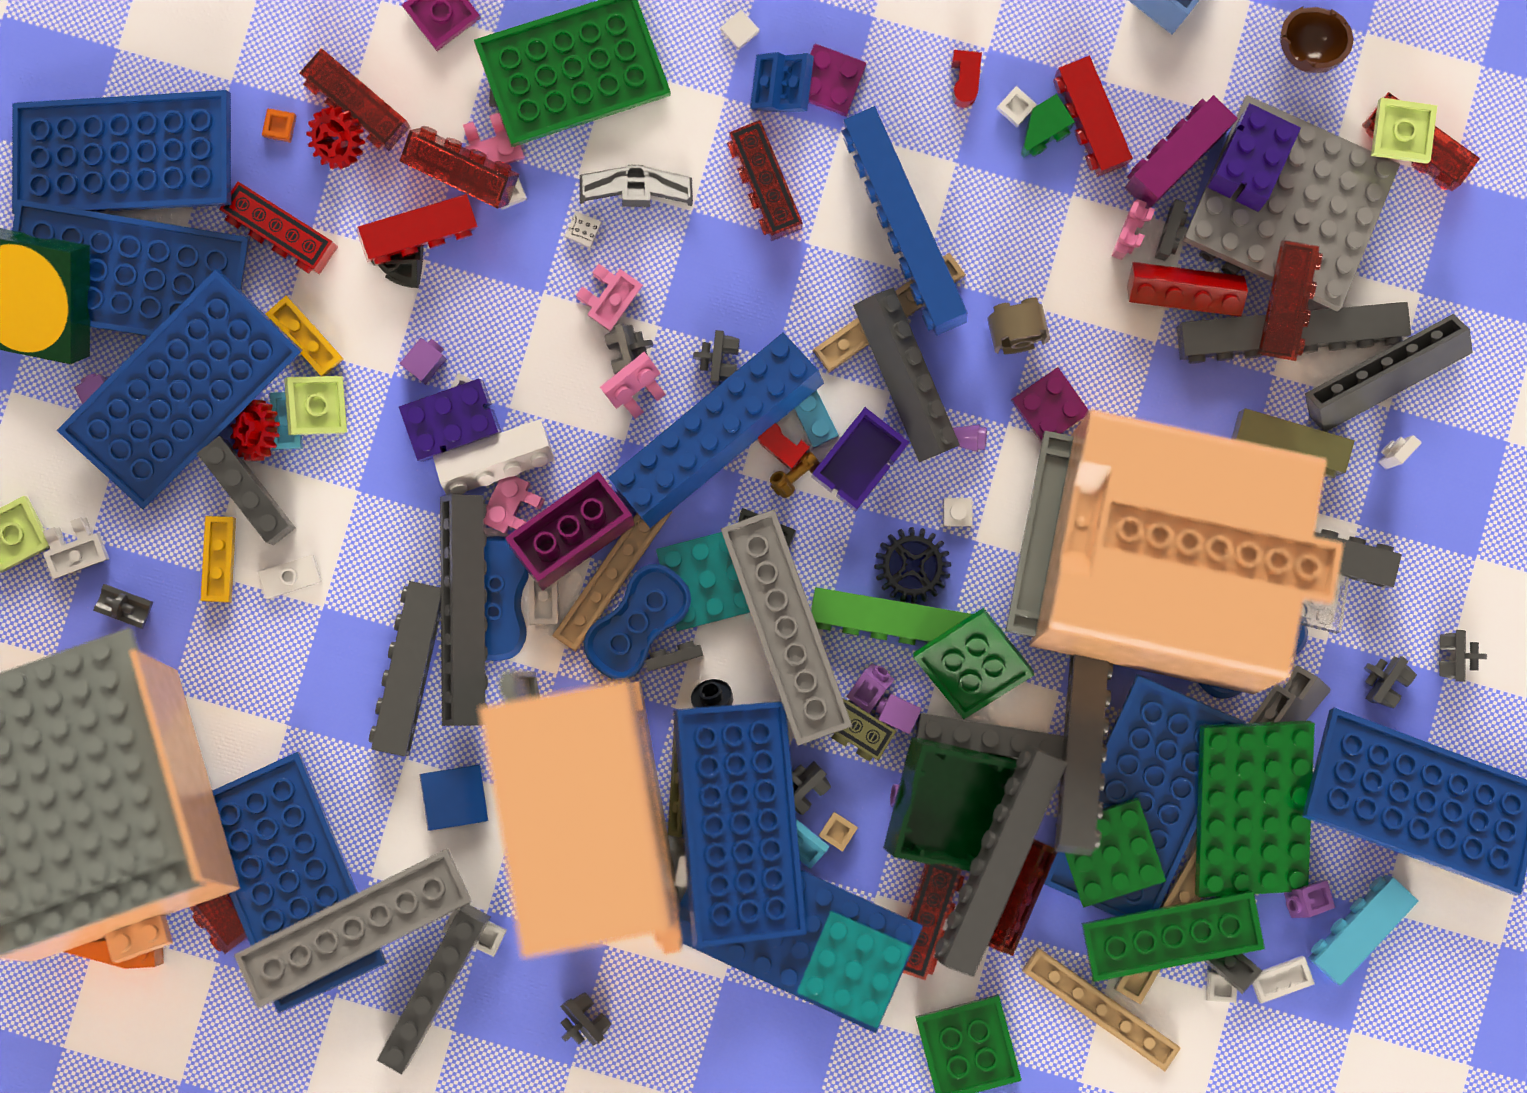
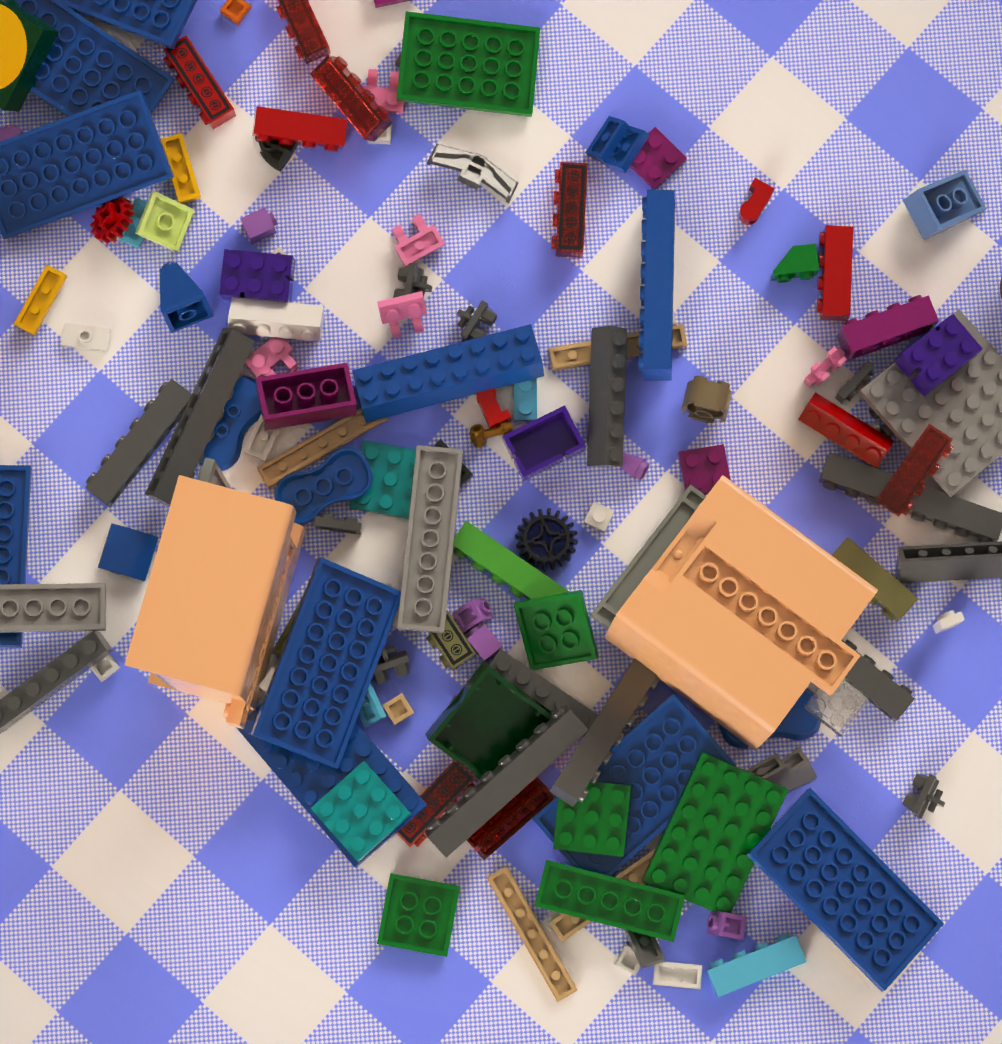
camera: 25 degrees right, 5 degrees down
(246, 490) = (85, 260): dark grey brick -> none
(332, 123) = (266, 46): red gear -> none
(375, 484) = (181, 299): none -> blue slope
(583, 229) = (420, 184): white tile -> none
(592, 1030) = (142, 749): dark grey hips -> none
(712, 694) = (354, 562): black plate -> none
(739, 29) = (605, 92): white tile -> none
(1016, 106) = (782, 240): white plate -> none
(1395, 671) = (873, 786): dark grey hips -> none

